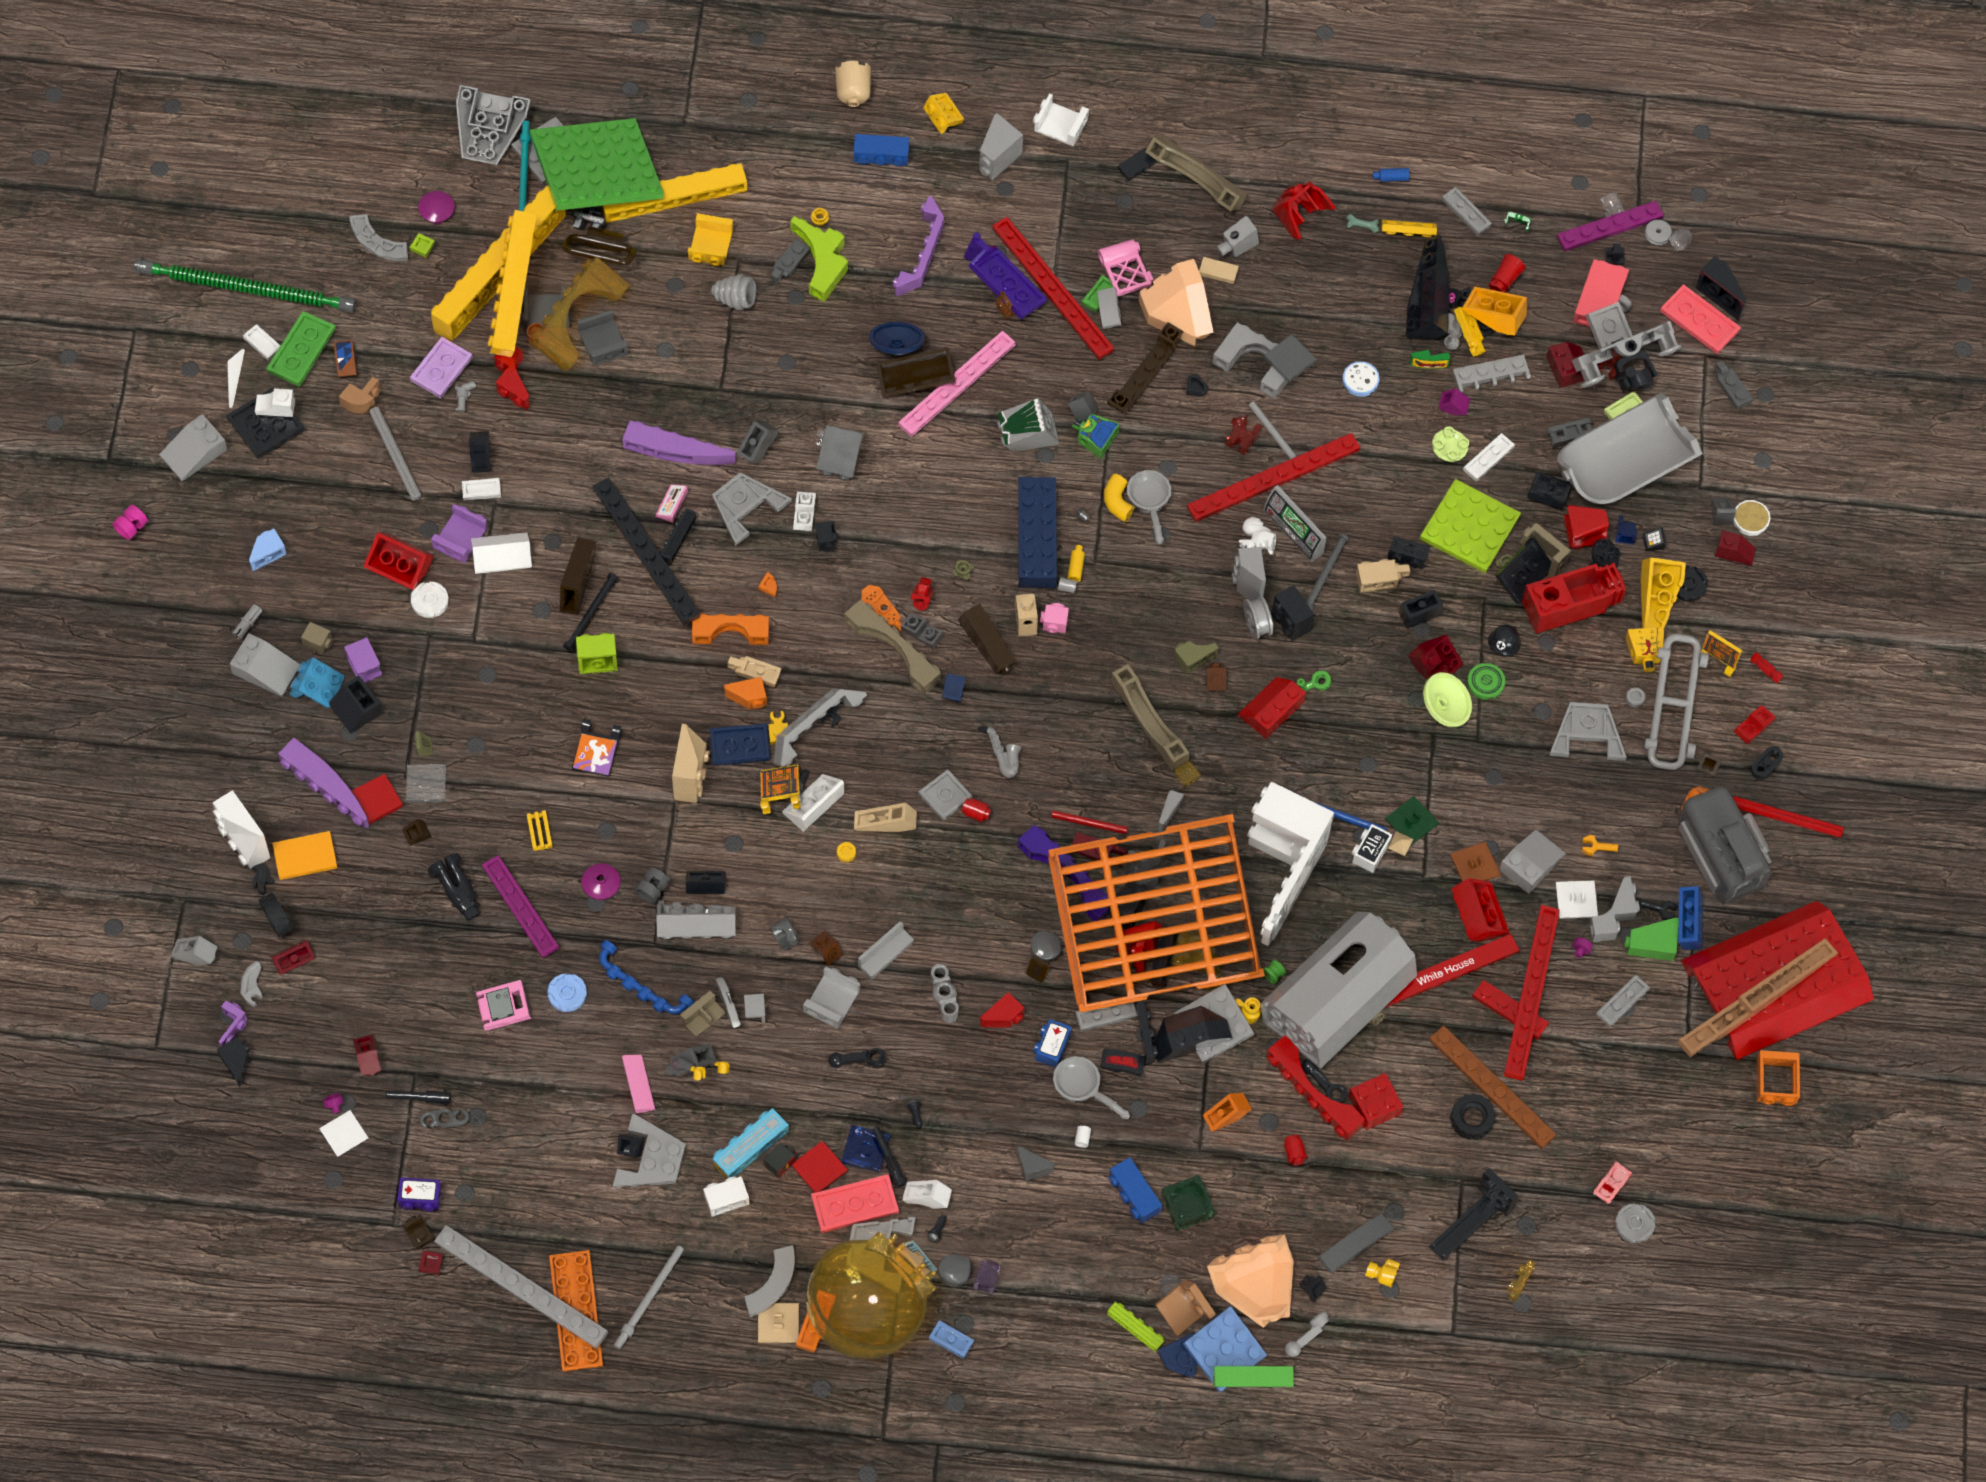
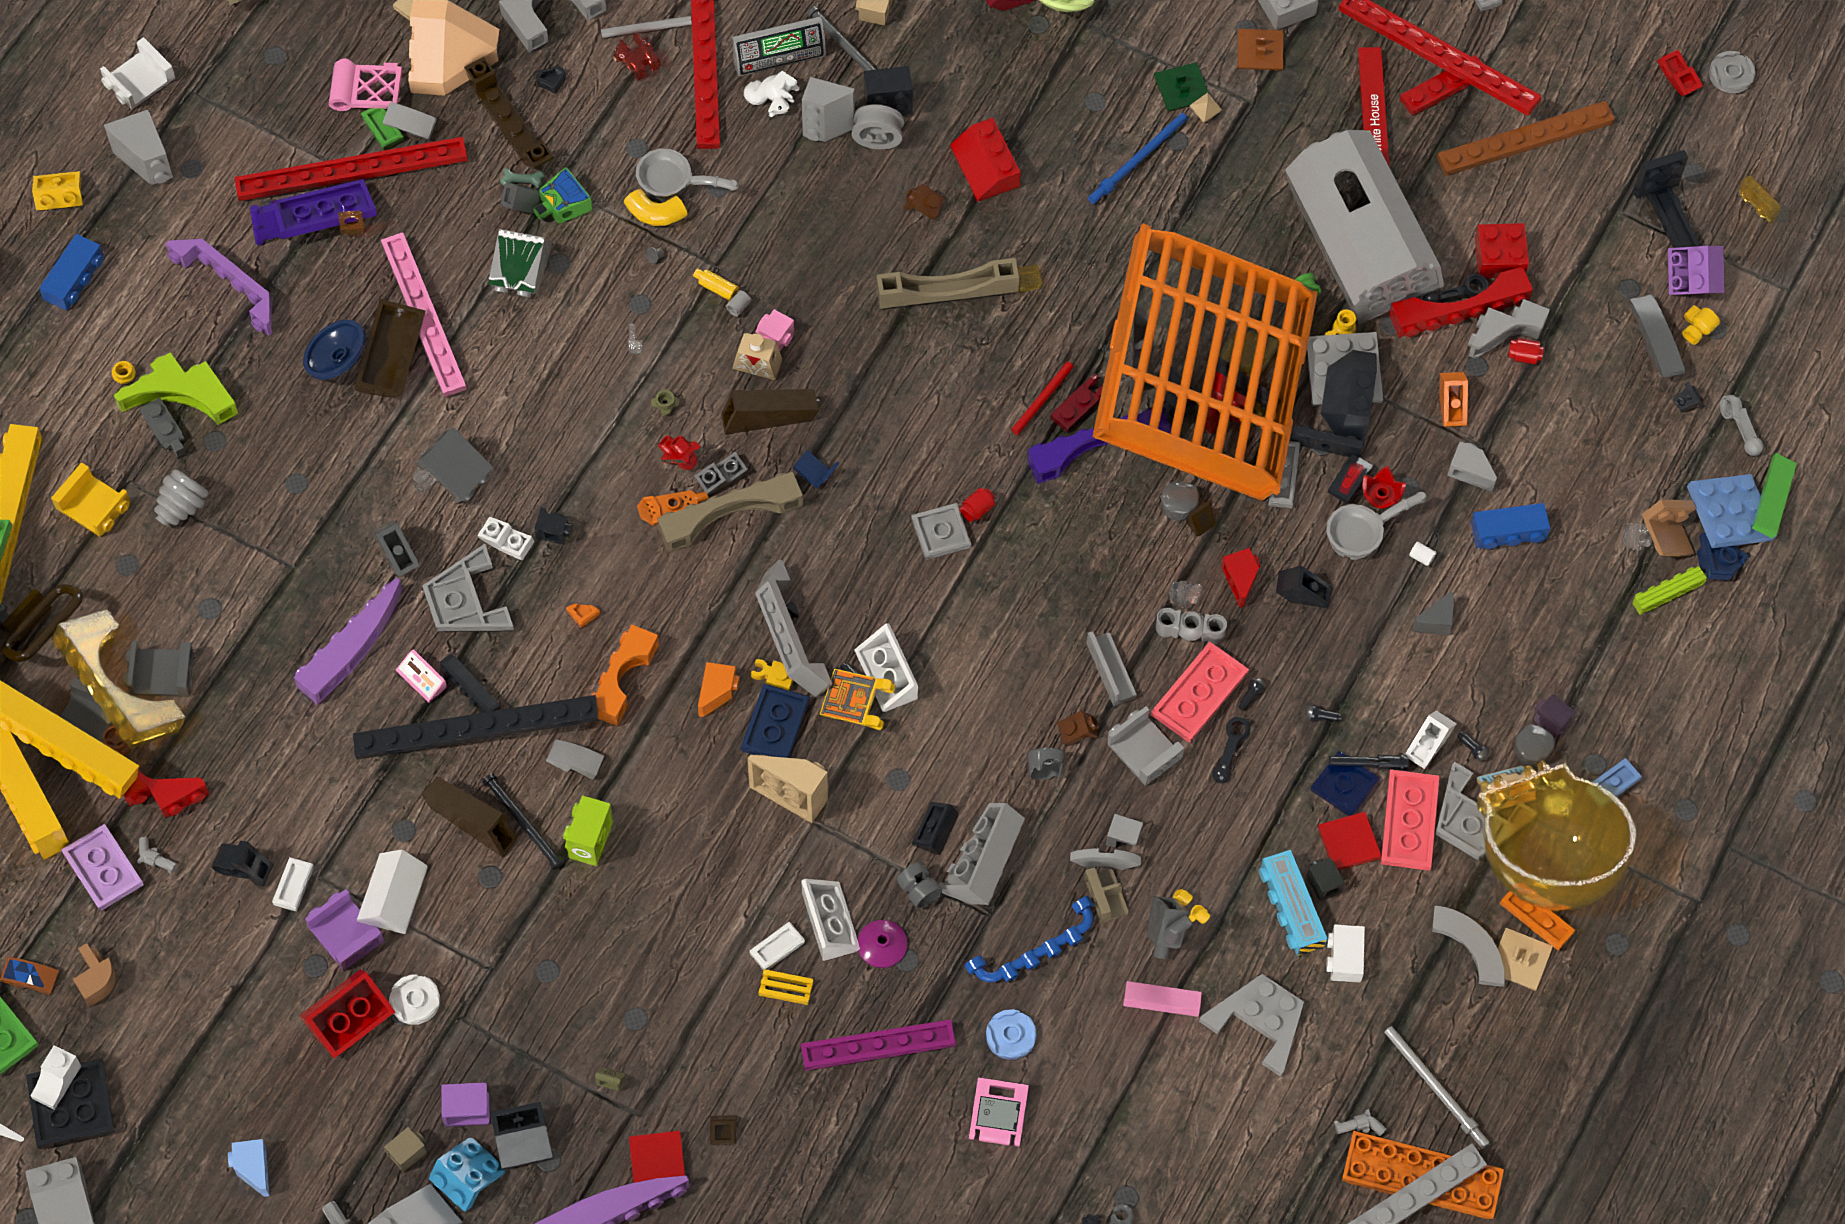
camera: 65 degrees left, 0 degrees up
(395, 453) = (192, 965): light grey axle -> none
(426, 783) = (662, 1094): clear tile -> none
(460, 896) = (835, 1107): black piece -> none
(568, 813) = (777, 946): none -> white tile
(596, 751) = (710, 884): flag -> none
(597, 1253) = (1360, 1122): none -> light grey piece
(601, 836) = (829, 918): none -> white slope
(630, 1145) = (1237, 1036): black slope -> none
(652, 624) = (575, 757): none -> light grey slope
(753, 668) = (688, 668): tan hinge -> none
(846, 852) = (965, 662): yellow tile -> none
(886, 819) = (945, 603): tan slope -> none
(893, 1019) = (1199, 692): none -> coral plate
(916, 1057) = (1256, 686): none -> black piece
(969, 979) = (1184, 594): none -> clear piece
(999, 531) = (635, 346): none -> clear hand
(1007, 761) = (929, 450): light grey piece -> none
(1012, 1061) = (1303, 587): none -> black slope
(1037, 532) = (658, 305): dark blue brick -> none
(1053, 1043) = (1299, 539): brick -> none
(1105, 410) = (534, 179): none -> sand green piece
(1123, 1079) = (1385, 483): none -> red piece
(1136, 164) = (236, 23): black tile -> none
(1172, 804) = (1065, 310): light grey slope -> none
(1174, 1144) = (1472, 467): none -> light grey slope
(1187, 1203) = (1546, 479): clear green container -> none
(1193, 656) = (888, 214): olive arch -> none
(1256, 1279) = (1663, 446): light nougat panel -> none
(1294, 833) = (1169, 188): white bracket -> none
(1304, 1122) = (1497, 326): none -> light grey arch
(1315, 681) = (977, 110): bright green plate -> none
(1371, 848) = (1201, 134): brick -> none
(1427, 1251) = (1696, 270): none -> medium lavender slope
(1462, 1127) = (1554, 185): black tyre -> none
(1480, 910) = (1320, 65): red slope -> none

